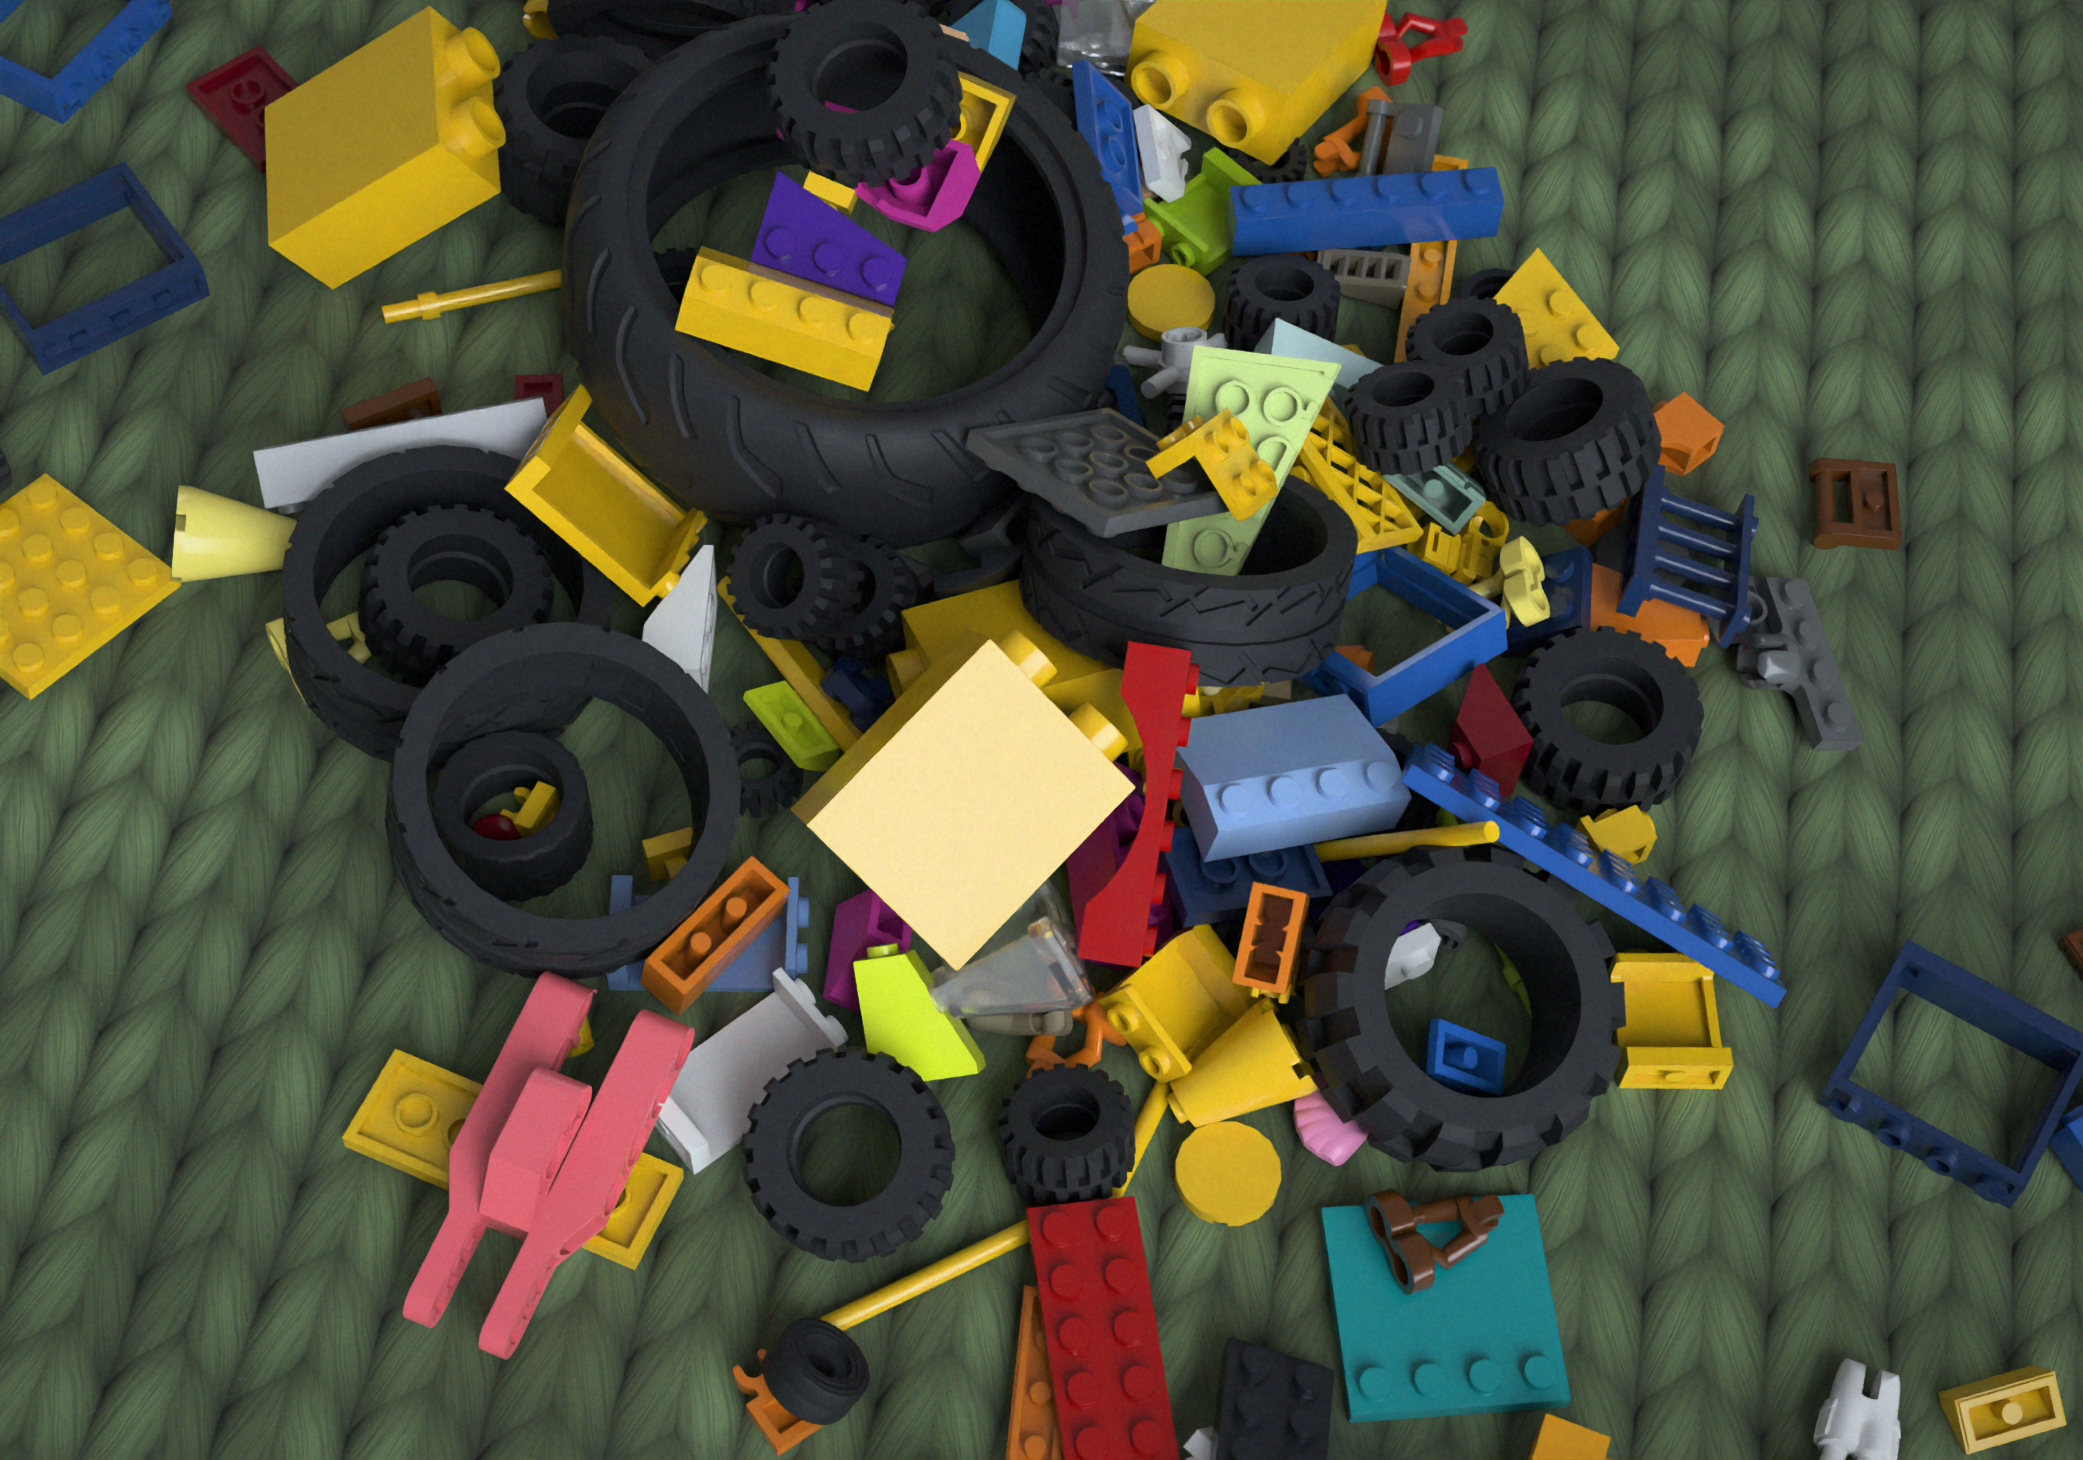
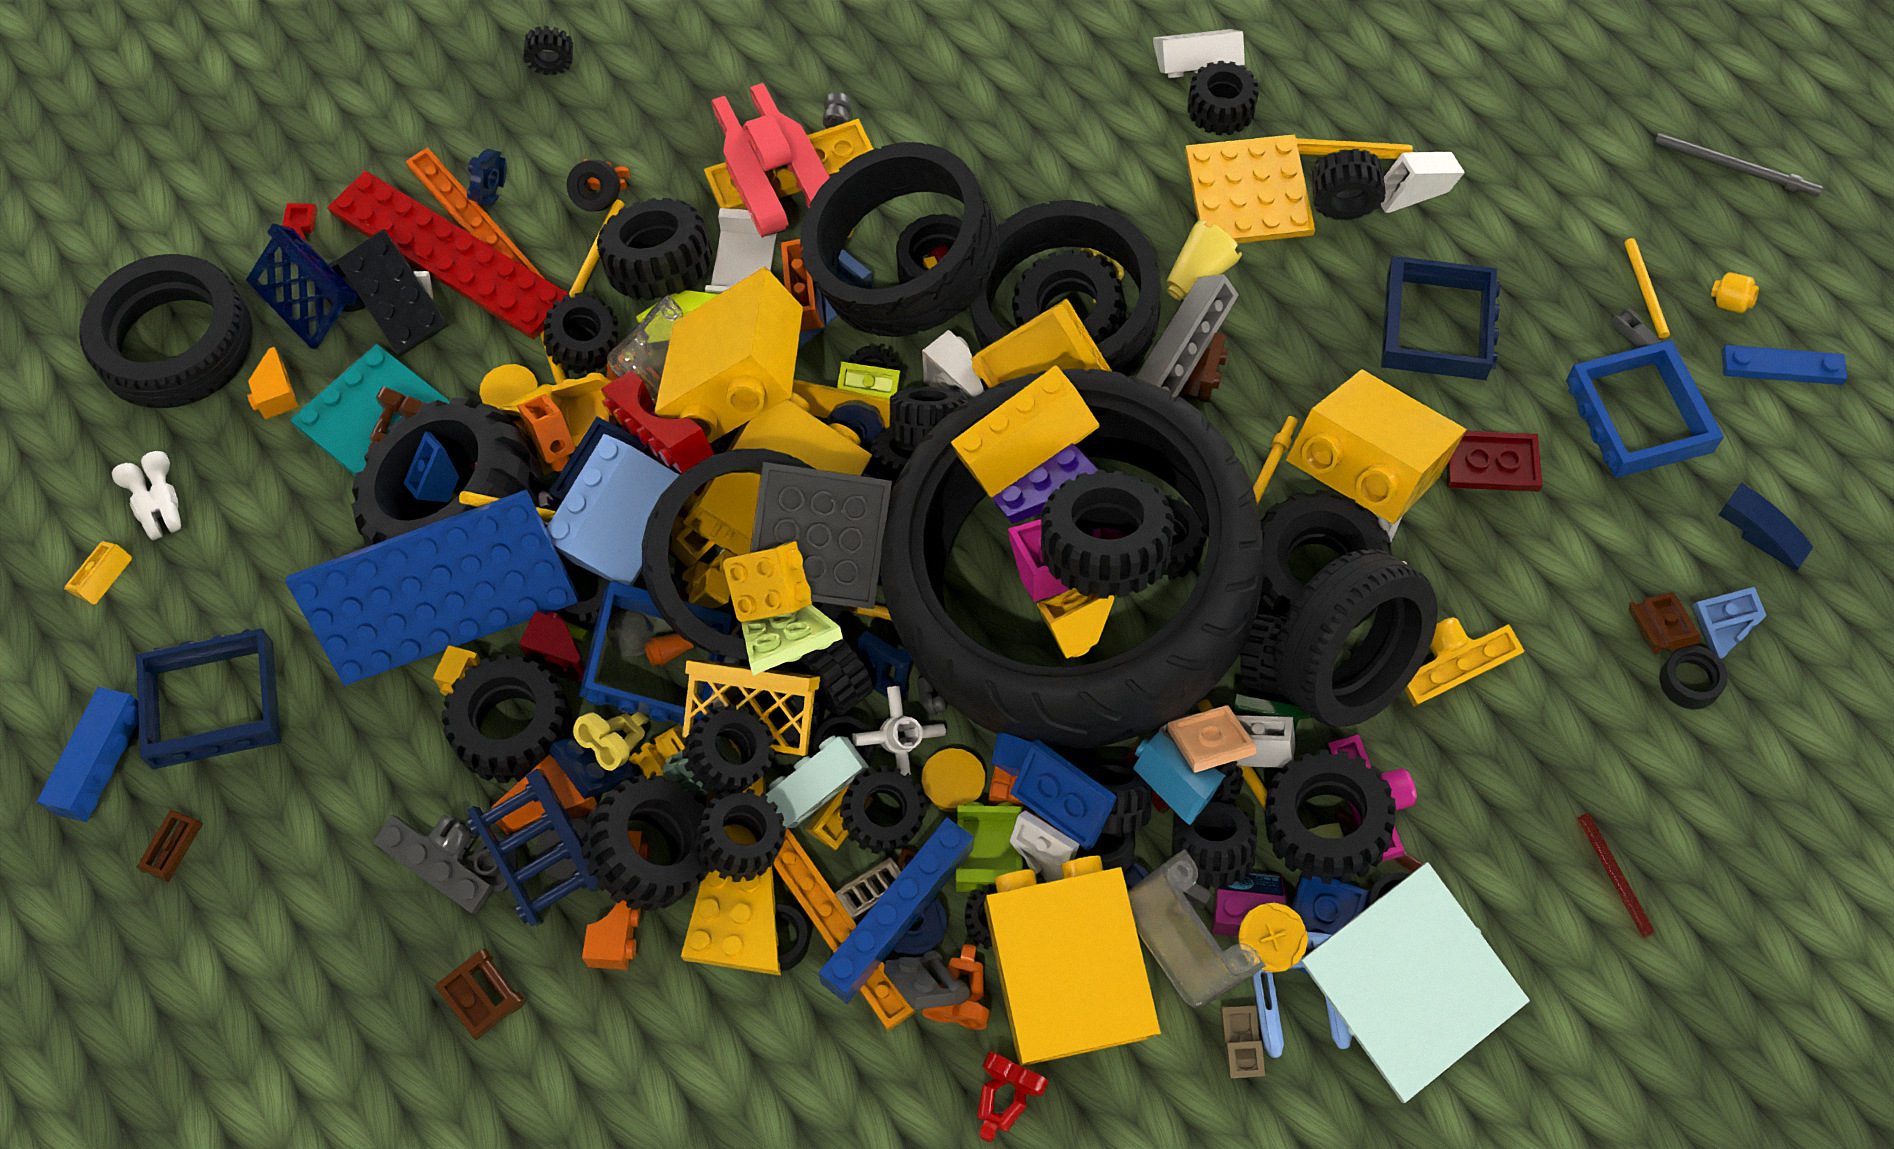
camera: 140 degrees right, 5 degrees up
(352, 1182) = (837, 110): none -> dark grey wheel

